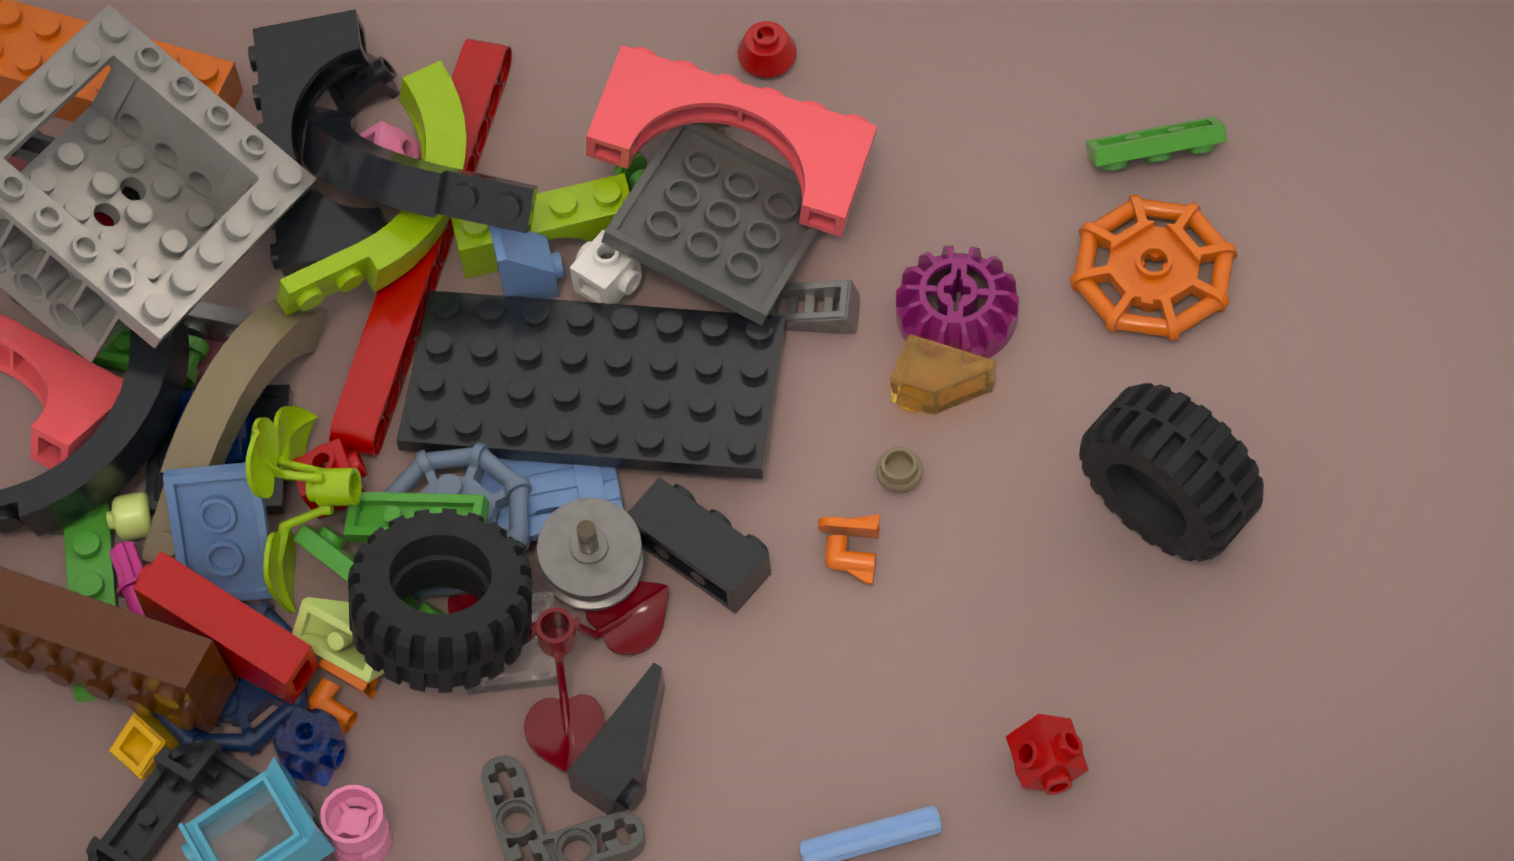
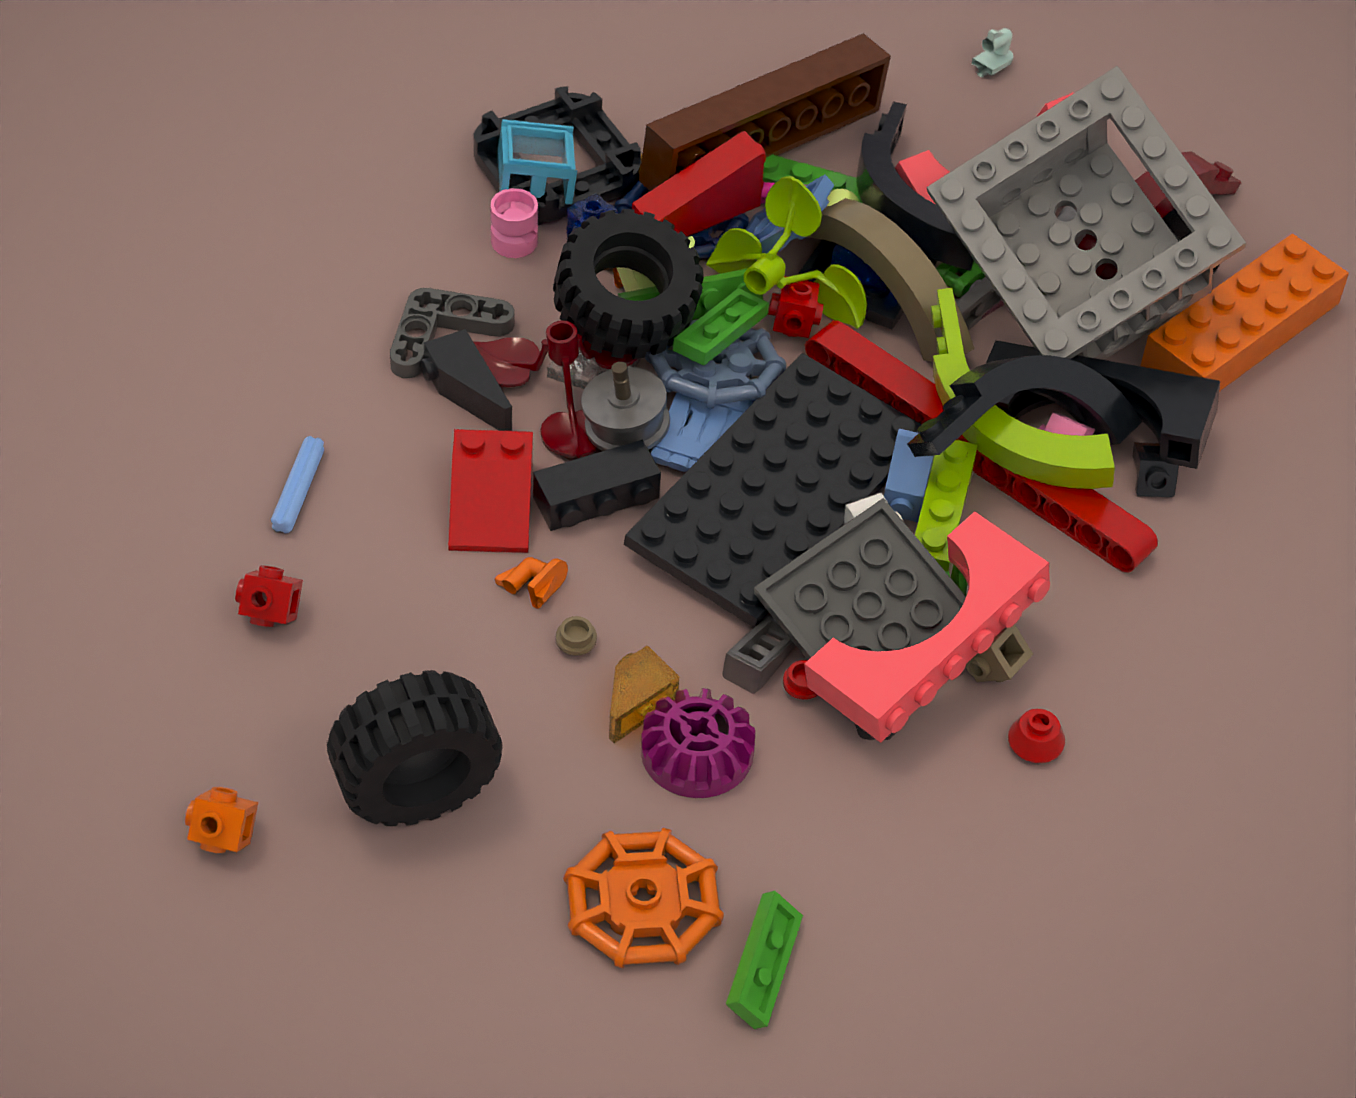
camera: 110 degrees right, 10 degrees down
(766, 639) = (491, 491): none -> red slope
(825, 257) = (796, 682): none -> red plate
(1330, 633) = (221, 820): none -> orange brick

